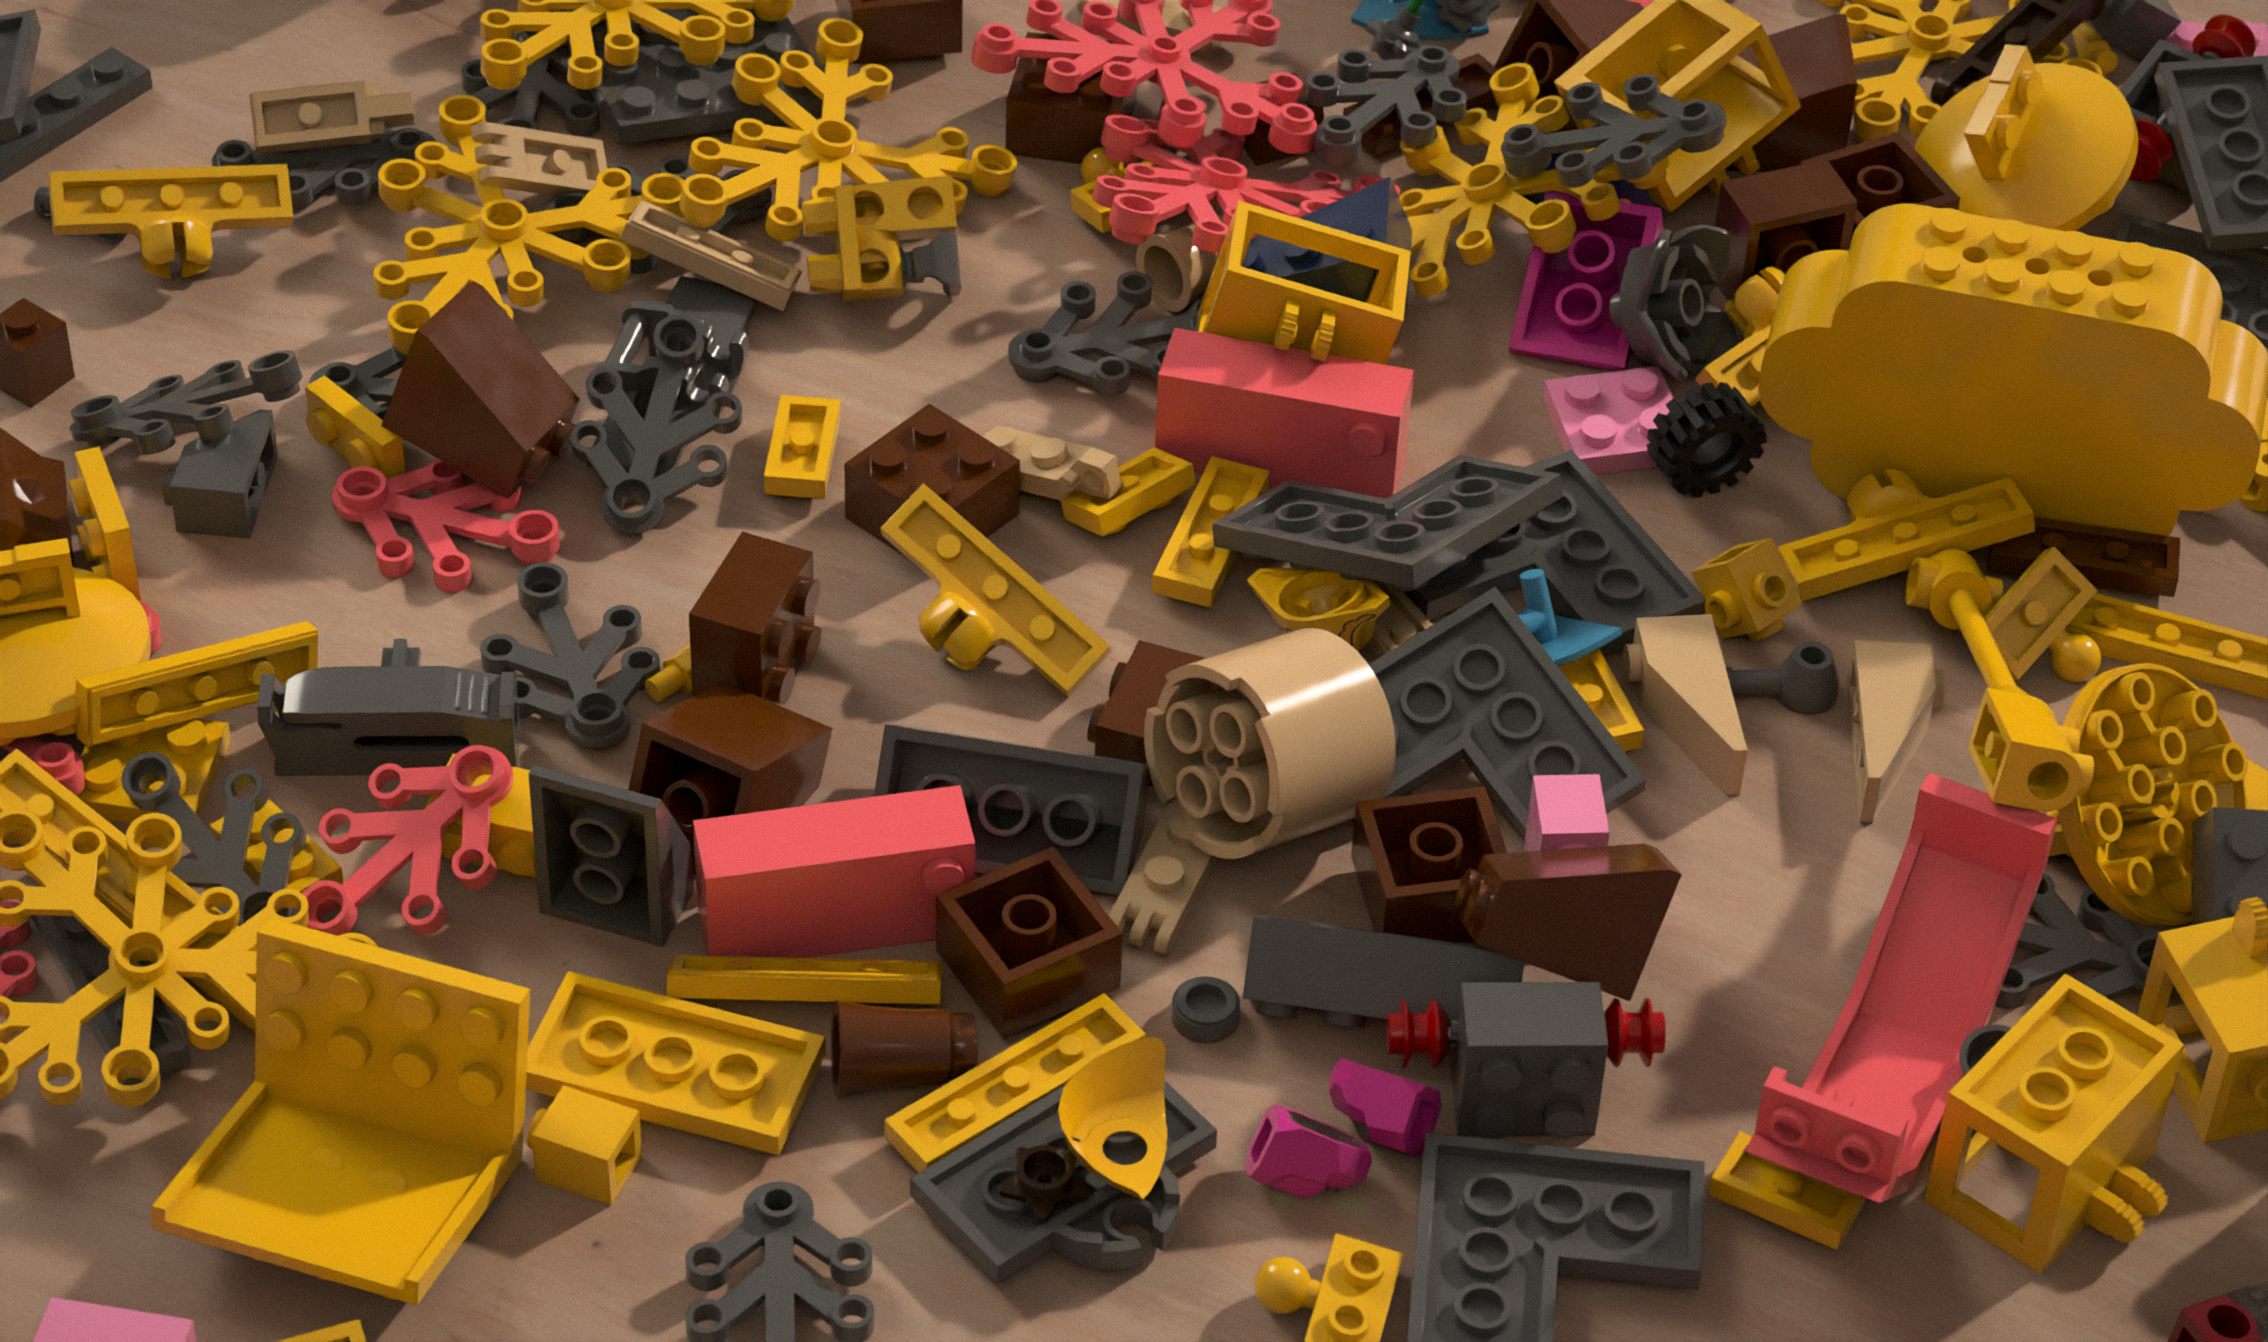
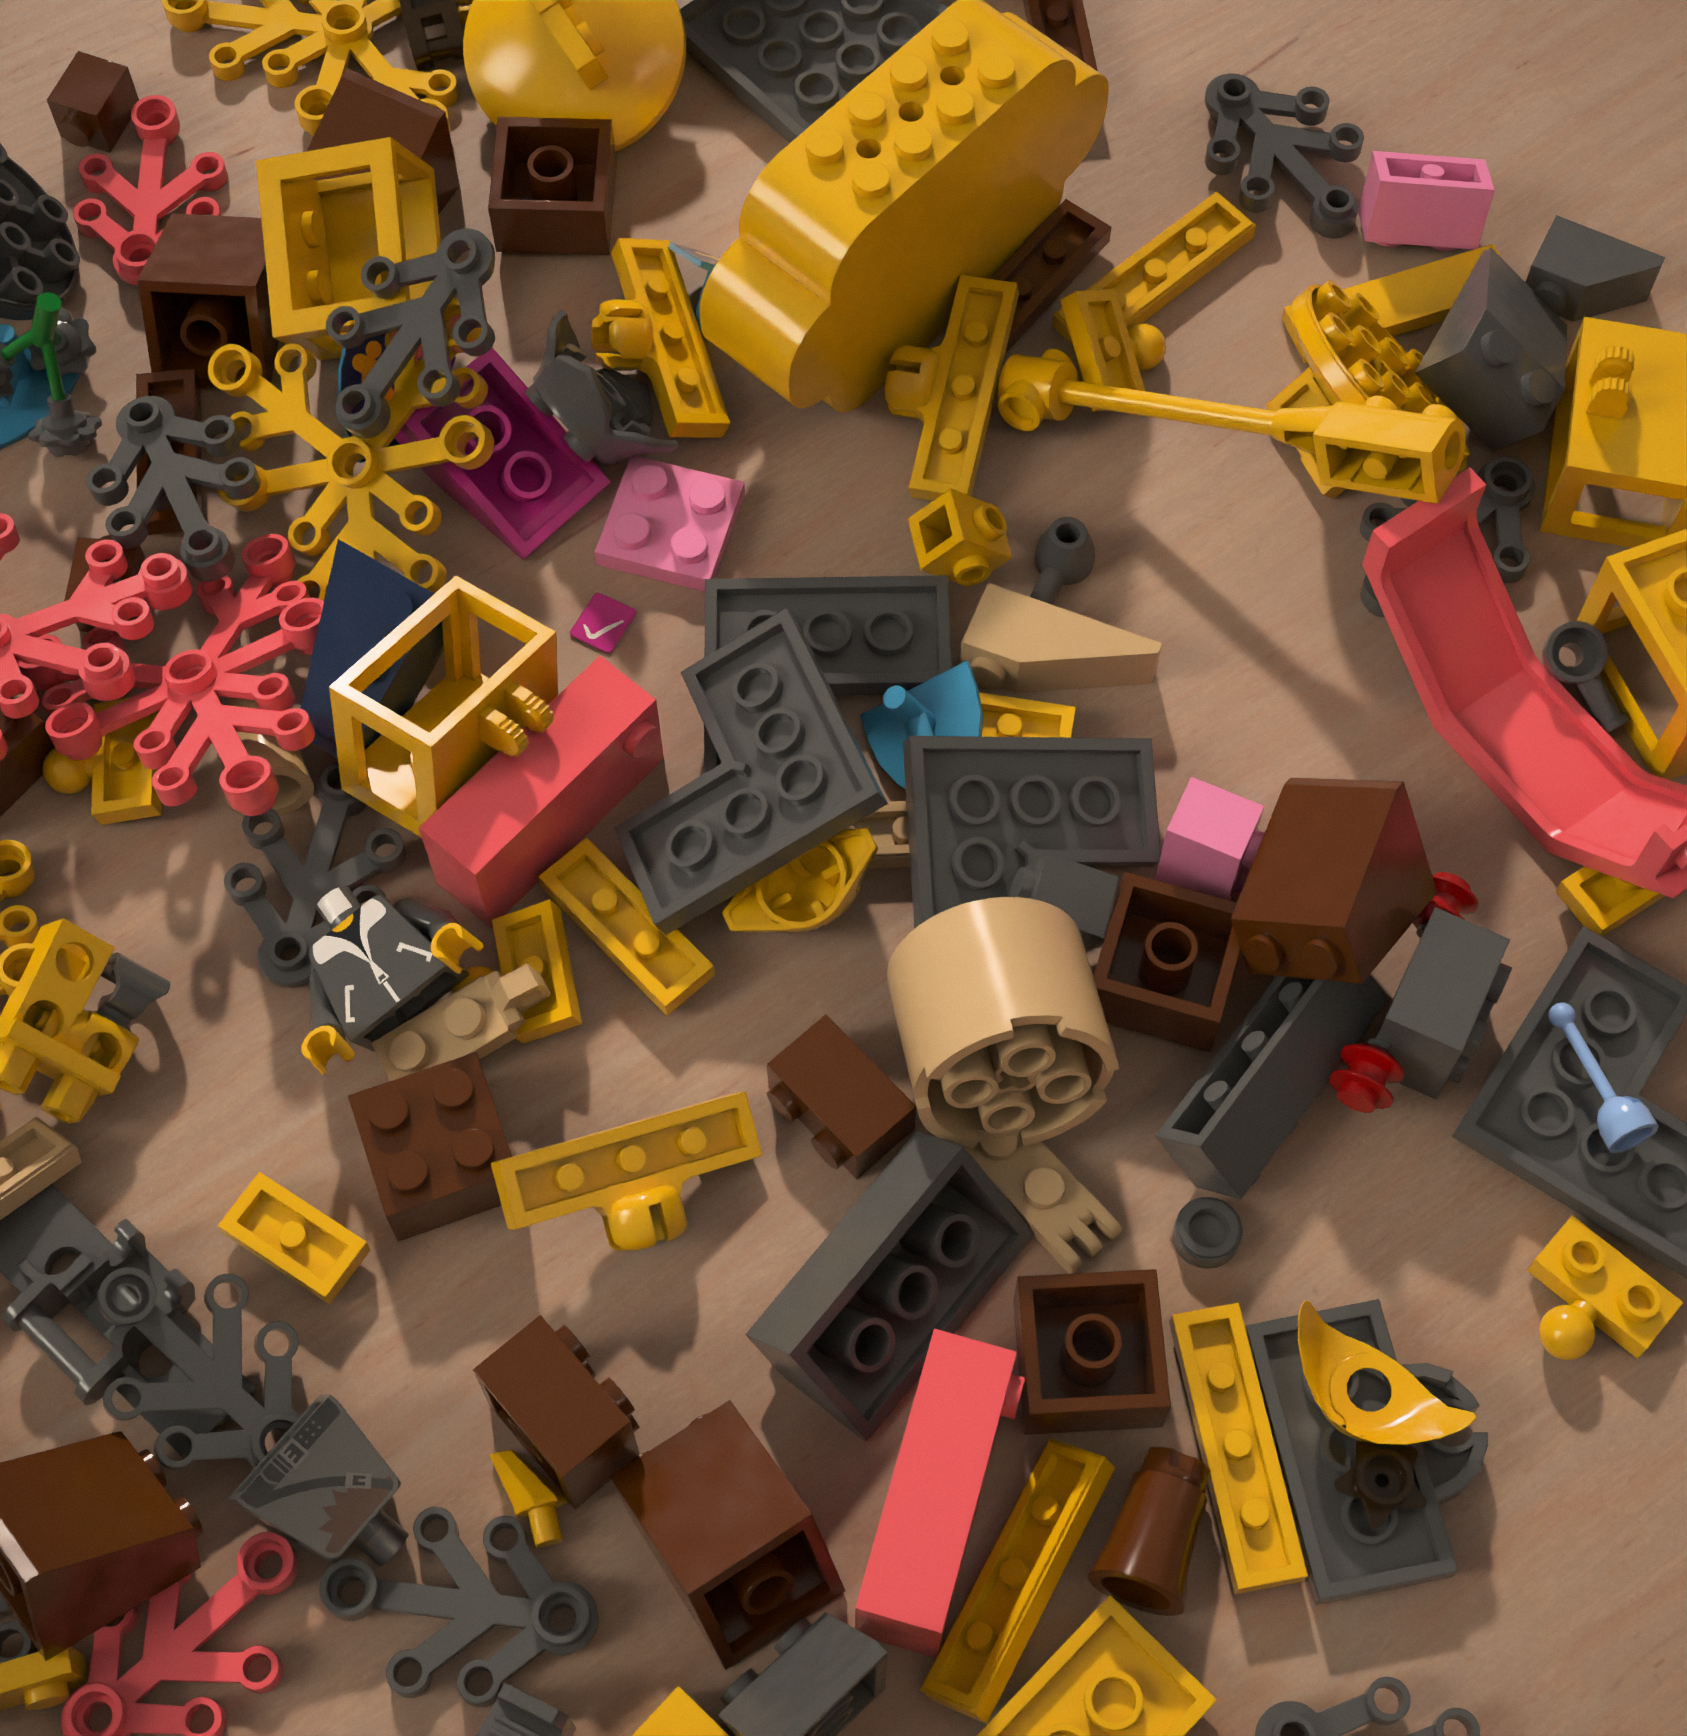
camera: 60 degrees left, 20 degrees up
(610, 527) = (325, 1487): none -> torso
(1049, 387) = (378, 969): none -> dark grey torso
(1305, 1154) = (1430, 1239): dark pink rock -> none
(1385, 1105) = (1404, 1141): dark pink rock -> none
(1430, 754) = (1074, 888): none -> dark grey brick
(1489, 421) = (603, 622): none -> dark pink sticker
(1521, 1224) = (1620, 1120): none -> light blue hinge
(1706, 439) = (768, 469): black tyre -> none
(1782, 219) = (552, 267): reddish brown brick -> none
(1889, 714) = (1149, 515): tan slope -> none

